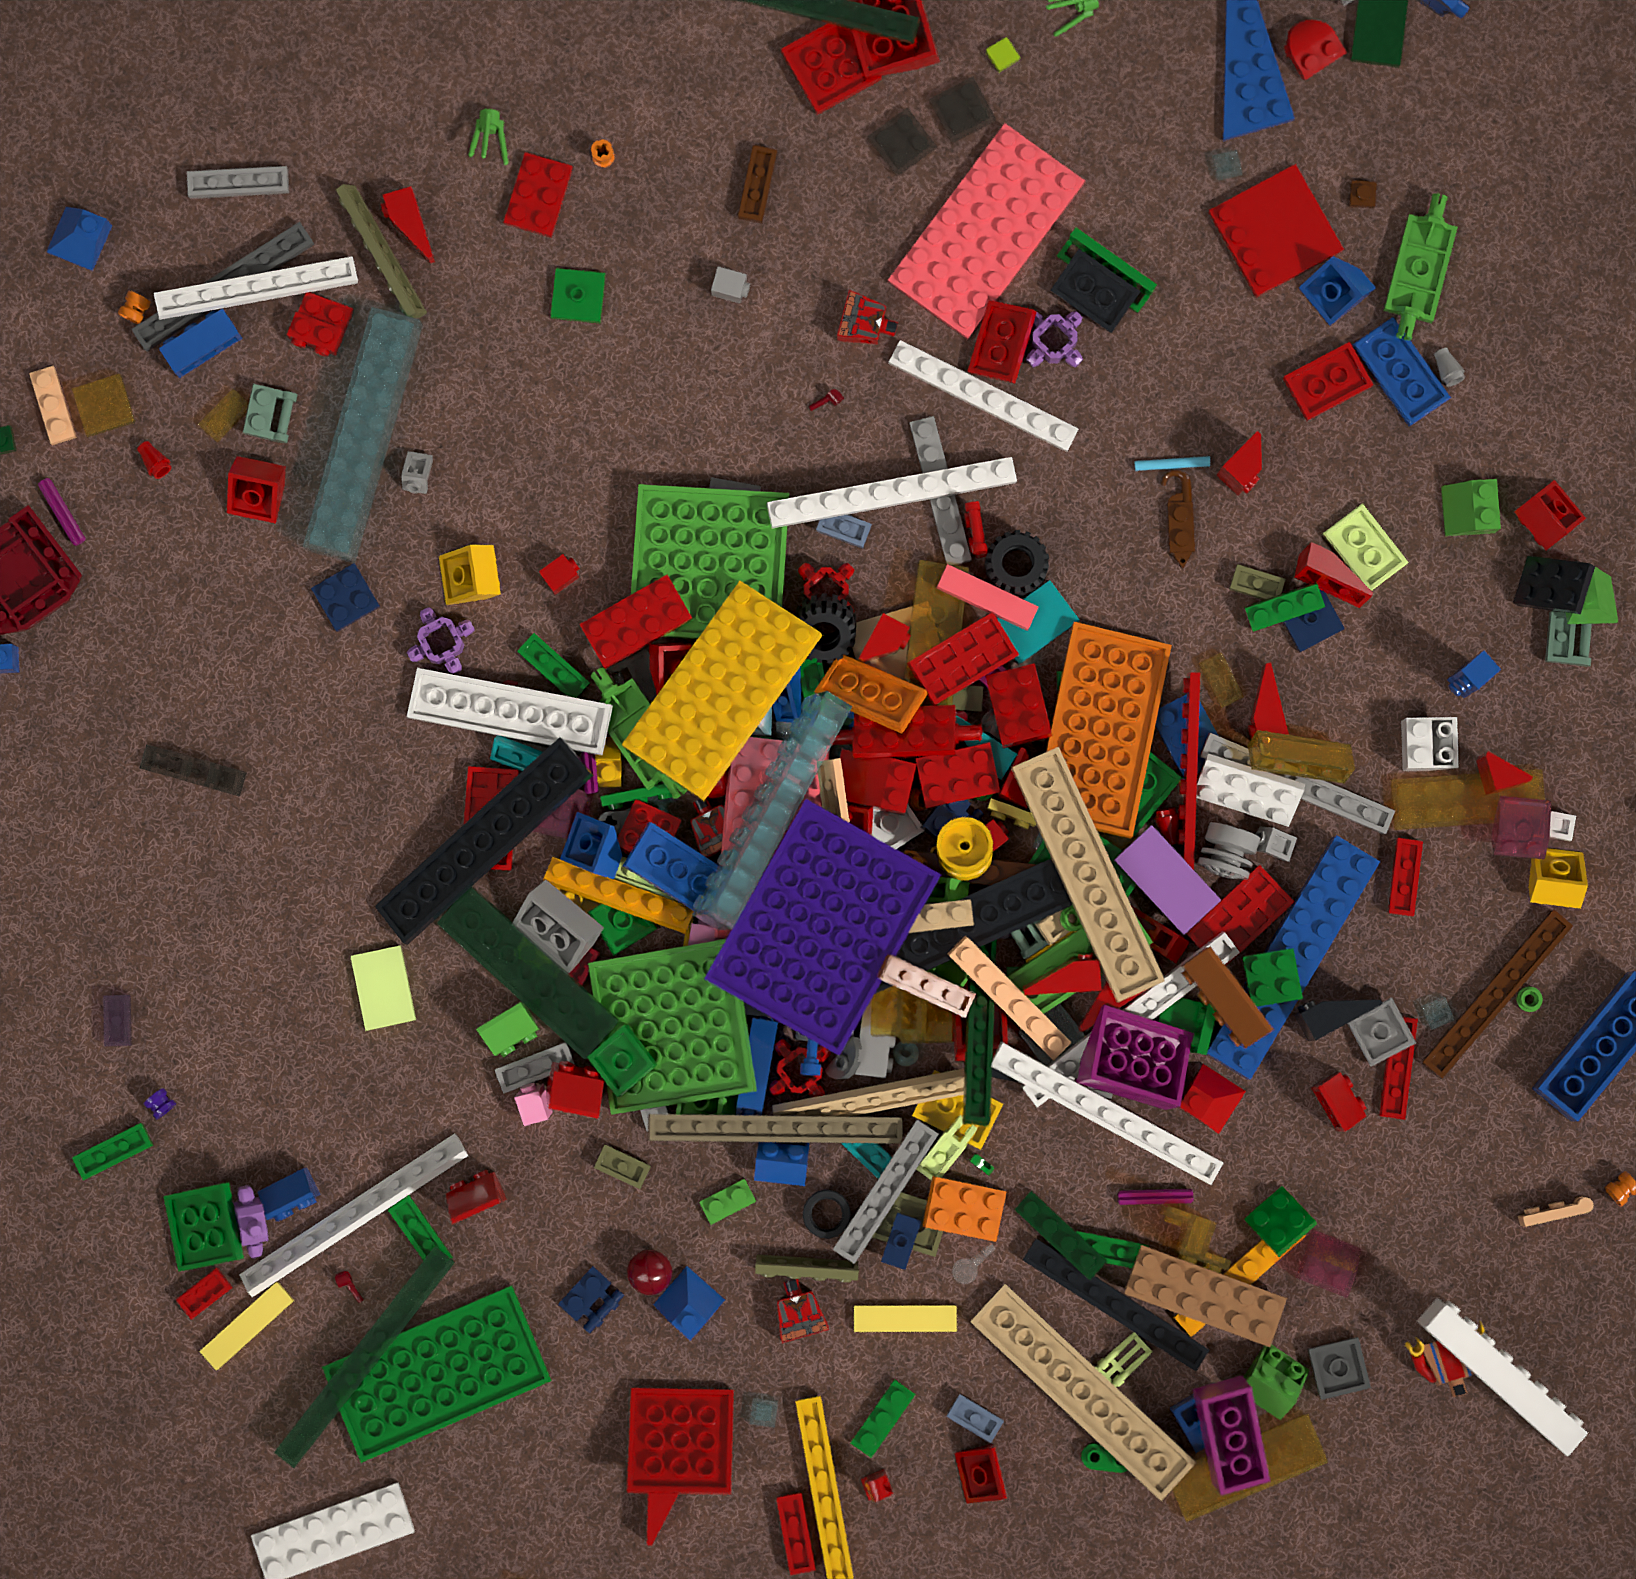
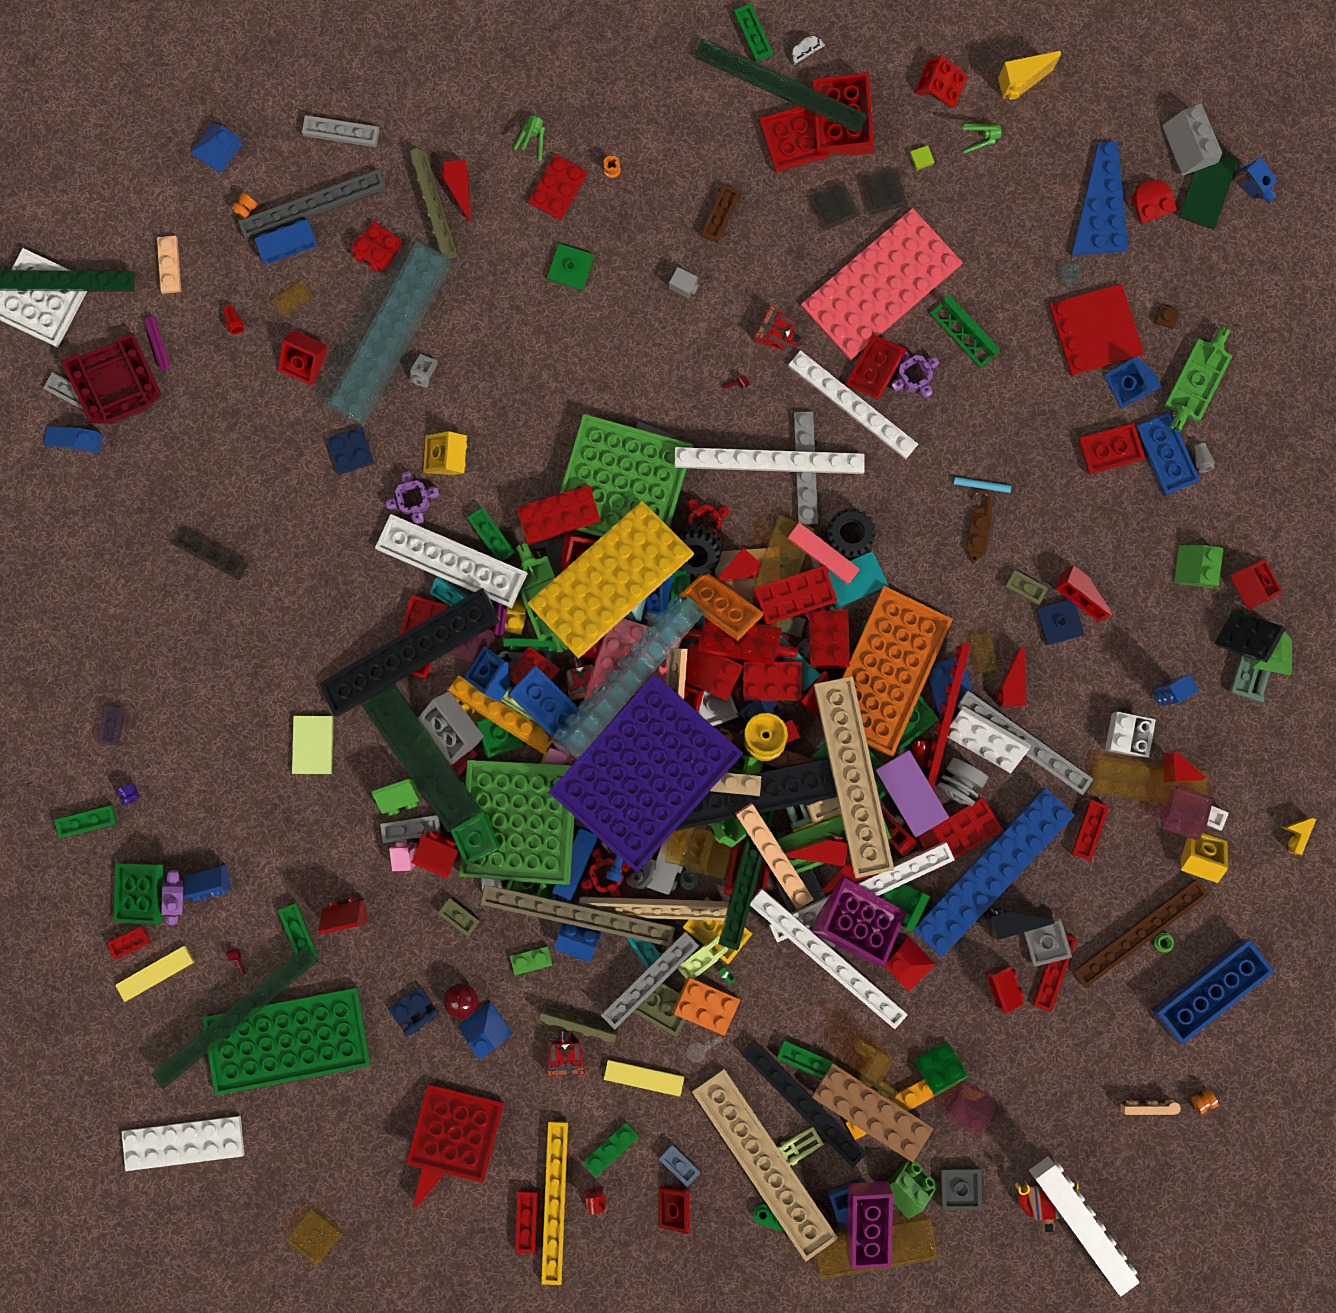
camera: 15 degrees right, 0 degrees up
(103, 405) = (205, 272): clear yellow plate -> none
(255, 288) = (334, 209): white plate -> none
(261, 410) = (318, 303): sand green plate -> none
(353, 1215) = (251, 909): white plate -> none
(560, 573) = (511, 467): red brick -> none
(763, 1412) = (523, 1124): clear light blue tile -> none
(807, 1214) = (602, 1001): black tyre -> none
(845, 529) = (729, 480): sand blue plate -> none
(901, 1241) = (653, 1020): dark blue plate -> none
(926, 985) = (713, 833): tile -> none
(973, 520) = (825, 495): red plate -> none
(1001, 811) = (799, 714): light yellow plate -> none
(1061, 1235) = (774, 1042): dark green plate -> none
(1065, 922) = (828, 807): bright green plate -> none
(1095, 290) = (953, 344): black plate -> none
(1158, 1196) = (851, 1028): magenta axle -> none
(1226, 997) = (938, 893): dark orange slope -> none
(1243, 467) = (1033, 500): red slope -> none
(1272, 977) = (975, 884): green plate -> none
(1275, 843) = (999, 783): light grey bracket -> none
(1284, 606) = (1043, 609): green plate -> none
(1301, 756) = (1032, 723): clear yellow brick -> none
(1365, 547) = (1112, 577): yellowish green tile -> none
(1437, 1013) = (1092, 937): clear light blue tile -> none

